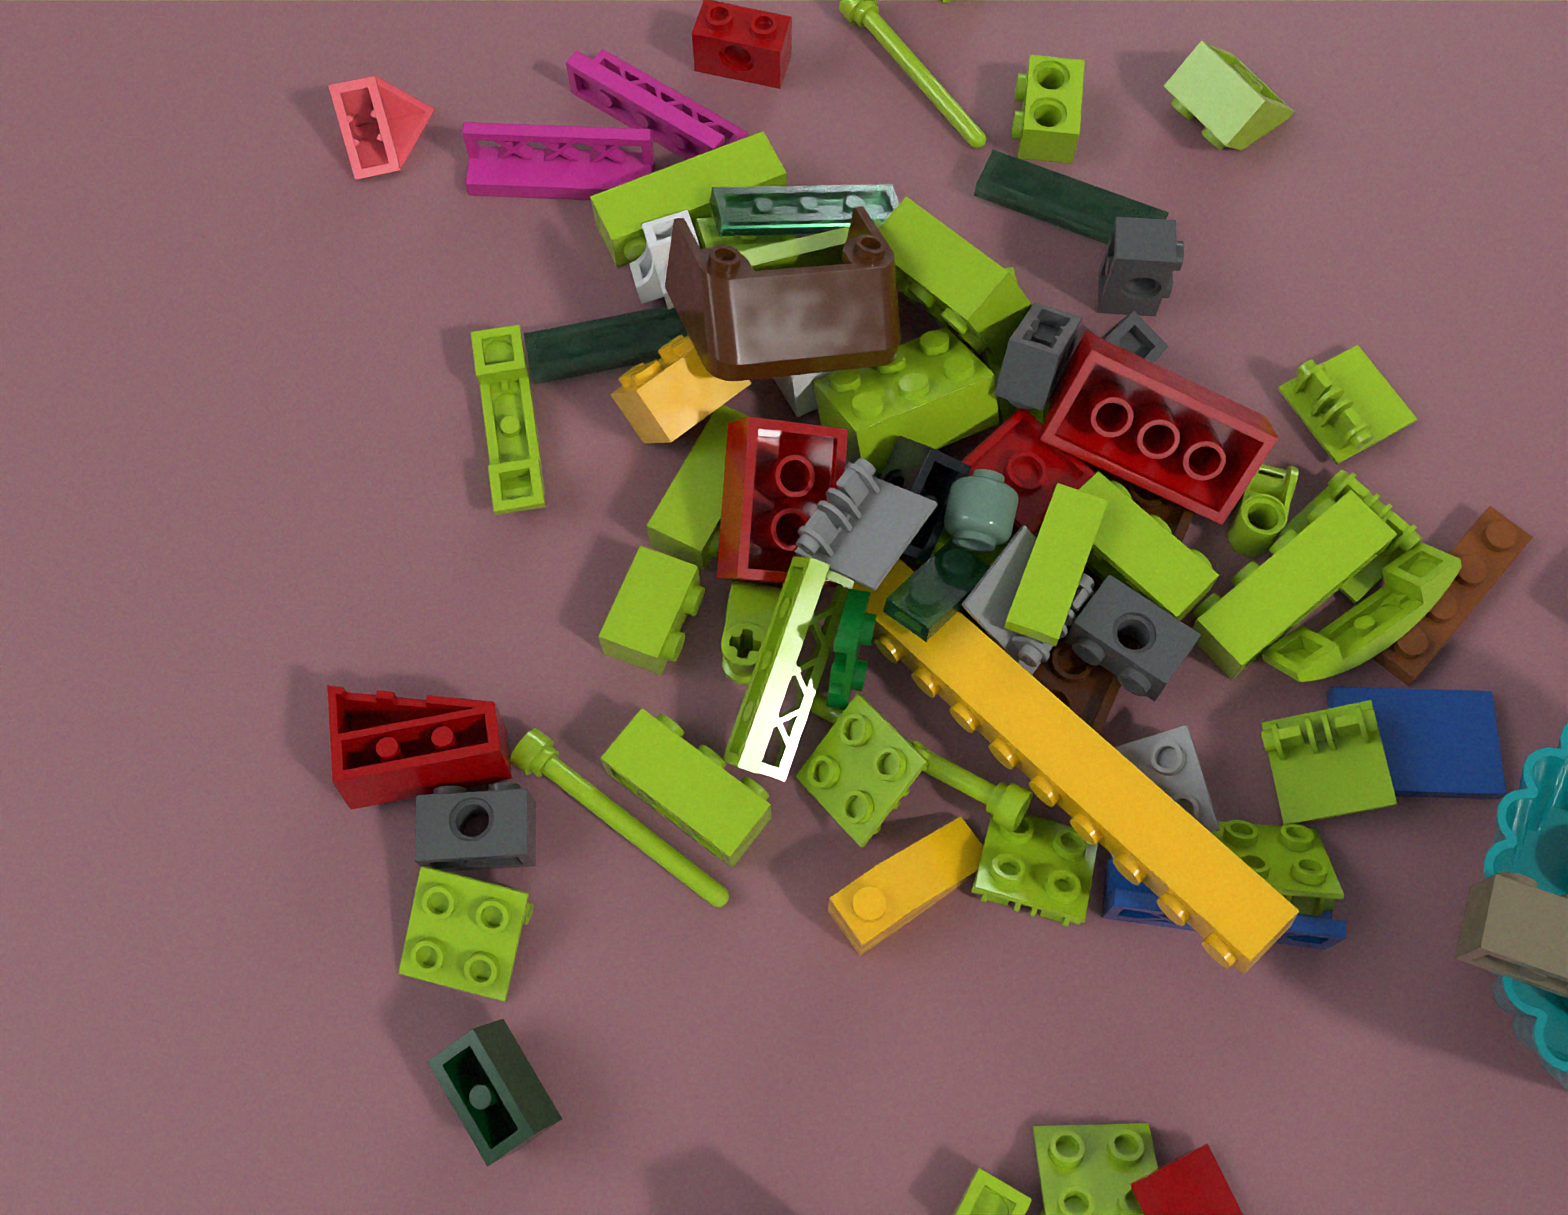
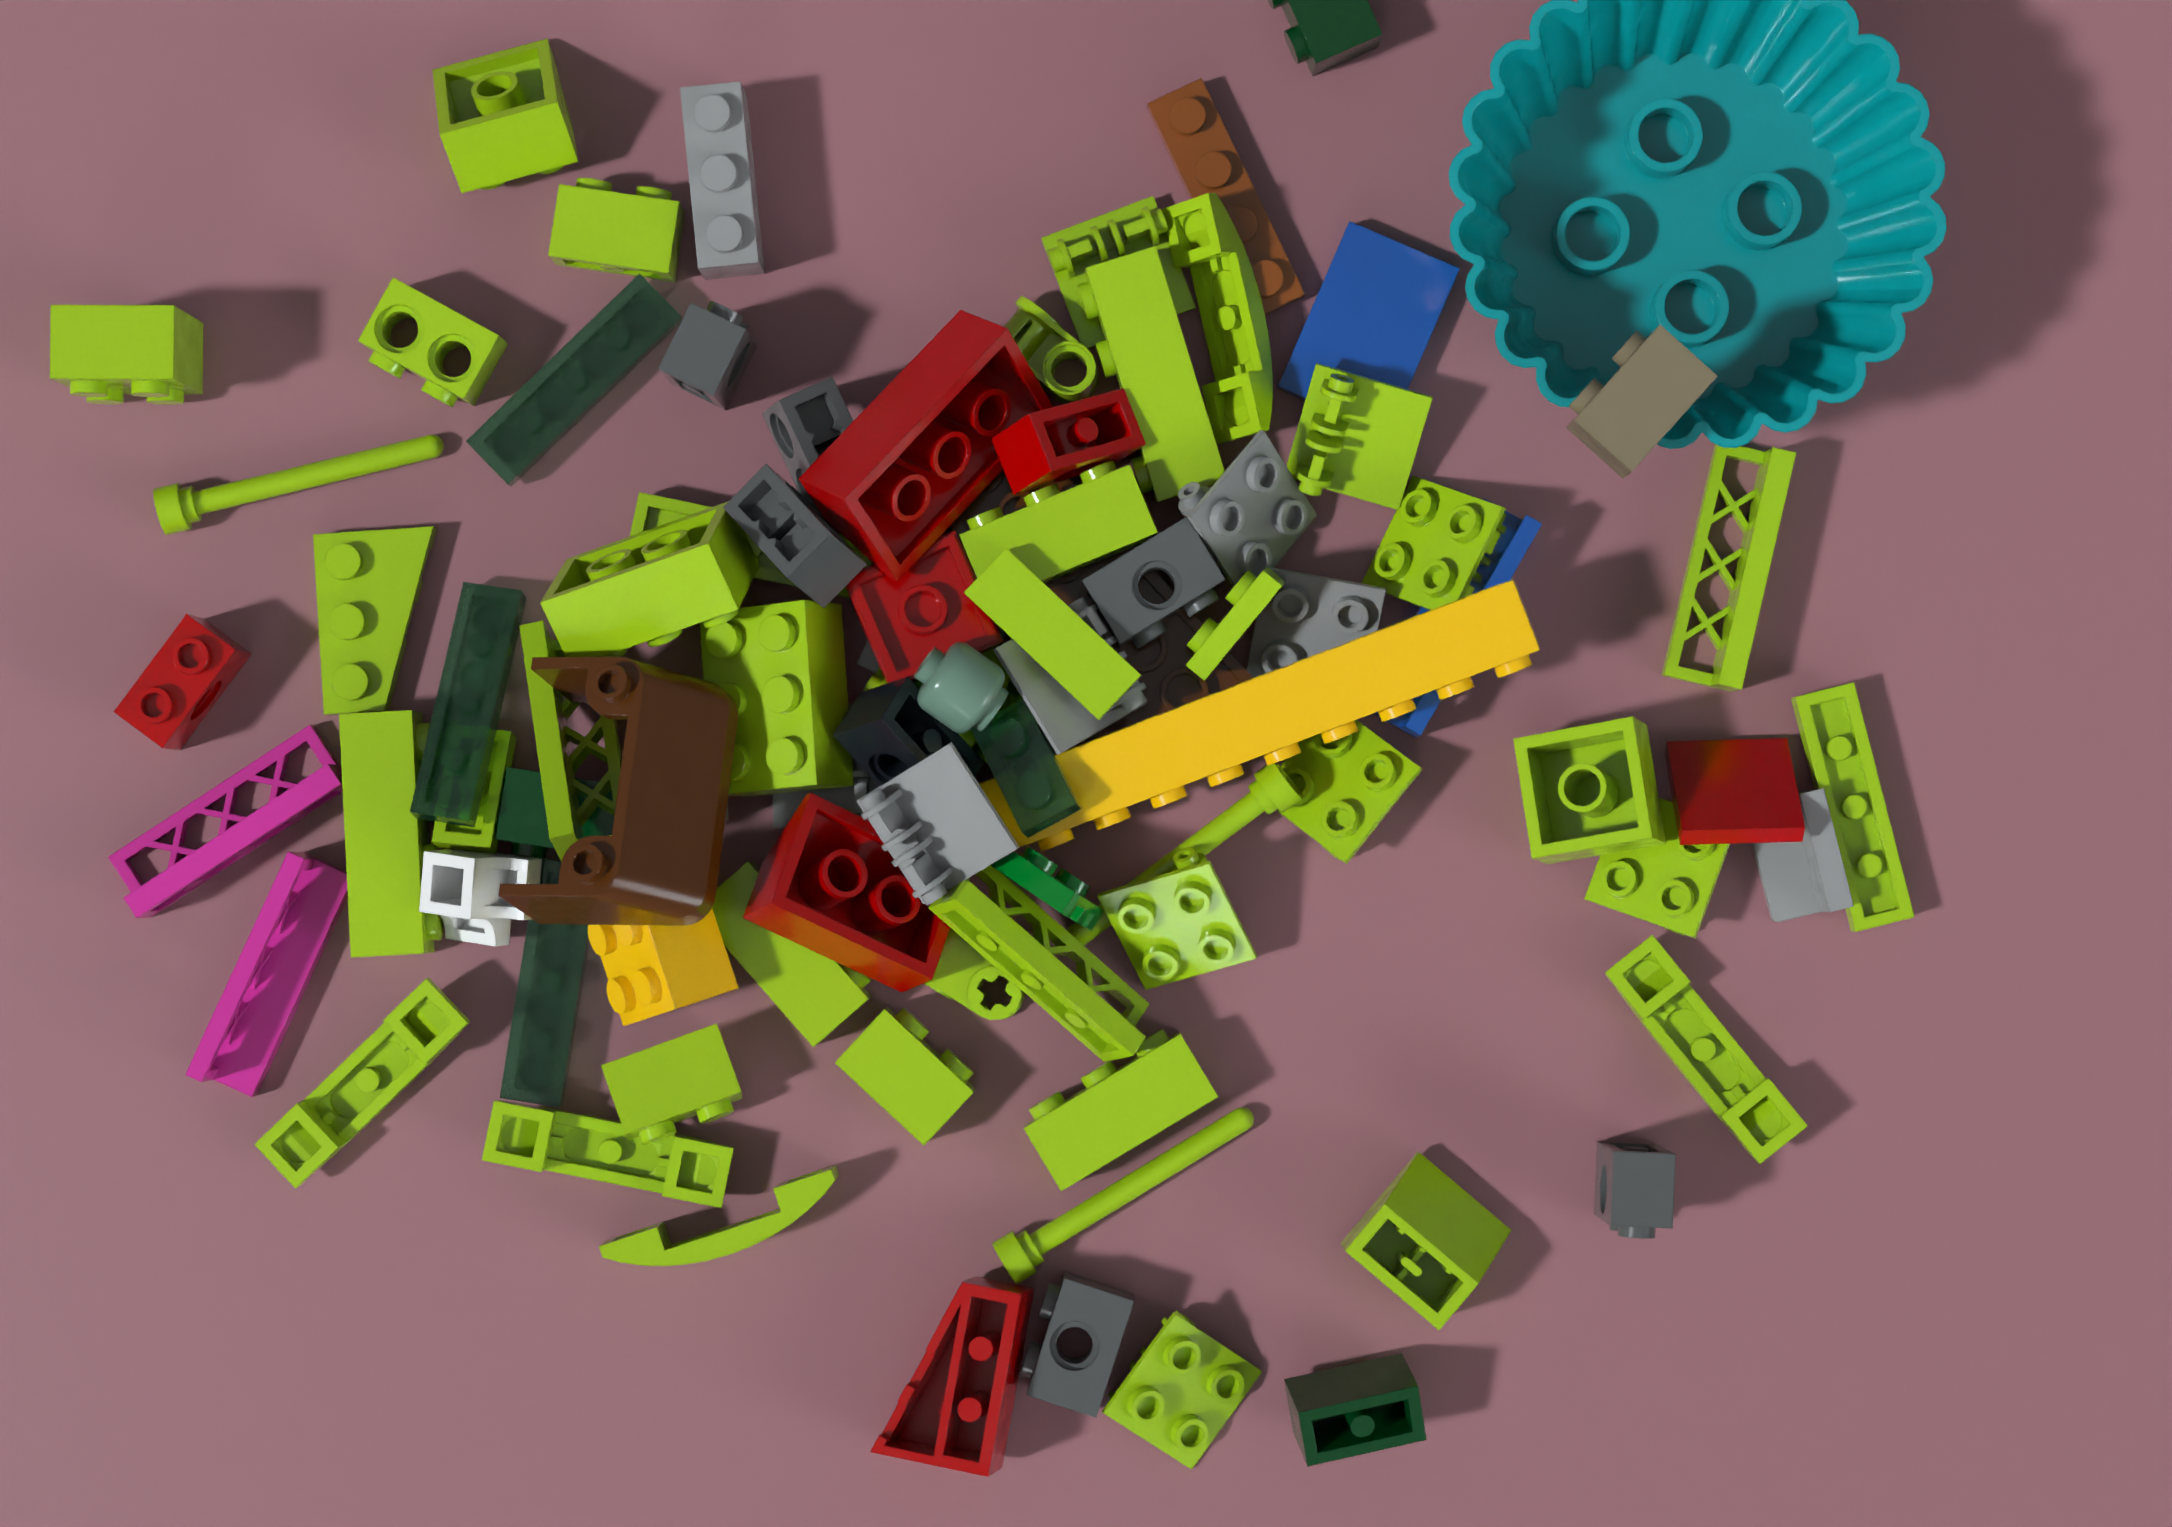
camera: 65 degrees left, 20 degrees up
(377, 124) = (126, 1177): coral slope -> none
(498, 251) = (363, 1083): none -> lime slope
(516, 563) = (653, 1246): none -> lime slope
(578, 442) = (673, 1084): none -> lime brick
(671, 1096) = (1427, 1240): none -> lime slope
(847, 135) = (365, 610): none -> lime wing
(905, 885) = (1309, 921): yellow slope -> none
(1113, 706) = (1214, 639): none -> lime plate
(1136, 1080) = (1589, 790): none -> lime brick
(1189, 184) = (617, 230): none -> lime brick
(1212, 518) = (1067, 440): none -> red brick
(1224, 695) = (1249, 511): none -> light grey hinge
(1264, 240) = (722, 180): none -> light grey brick
(1346, 403) = (961, 190): lime hinge -> none
(1393, 1159) = (1750, 573): none -> lime fence

